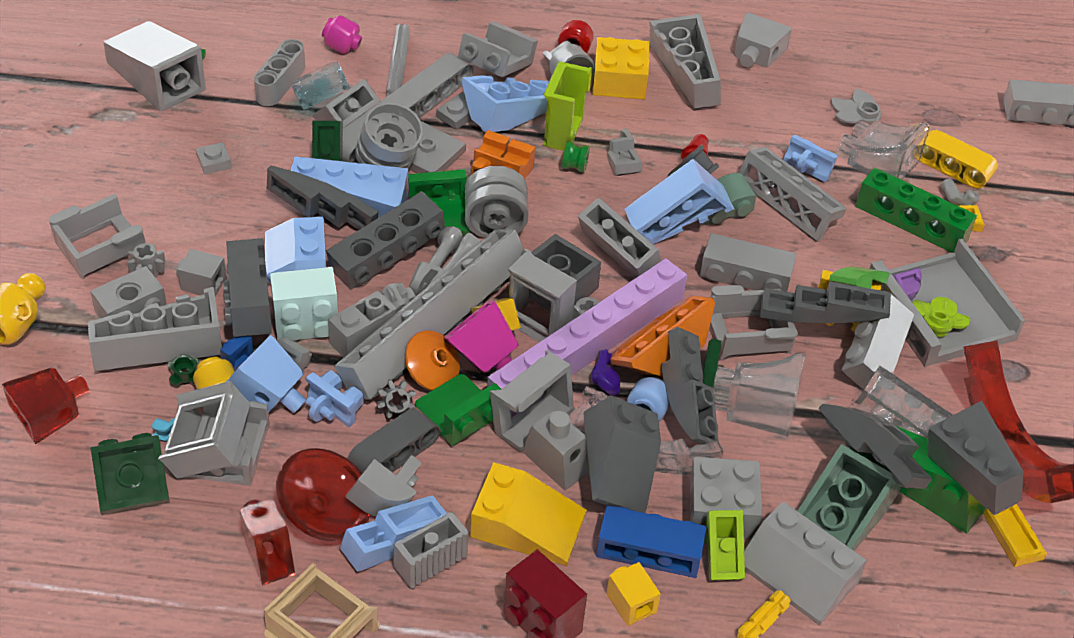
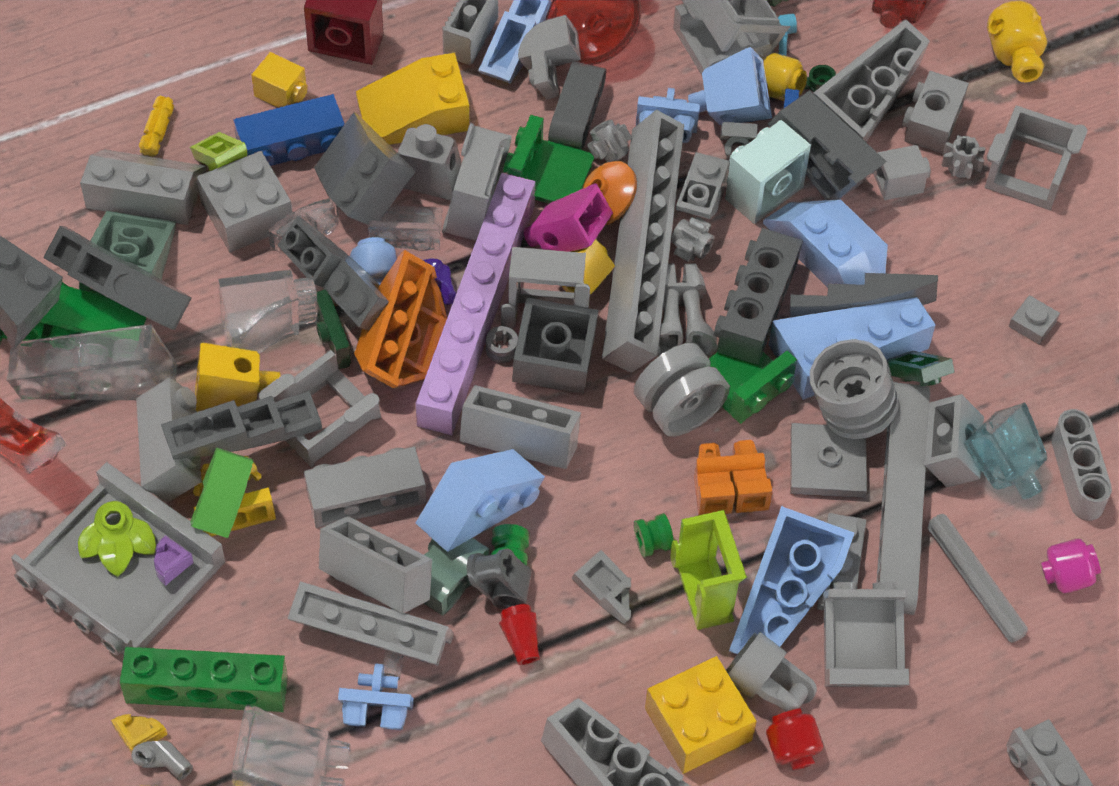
camera: 150 degrees right, 10 degrees up
(775, 201) = (375, 564): none -> light grey brick
(822, 363) = (229, 375): none -> yellow torso

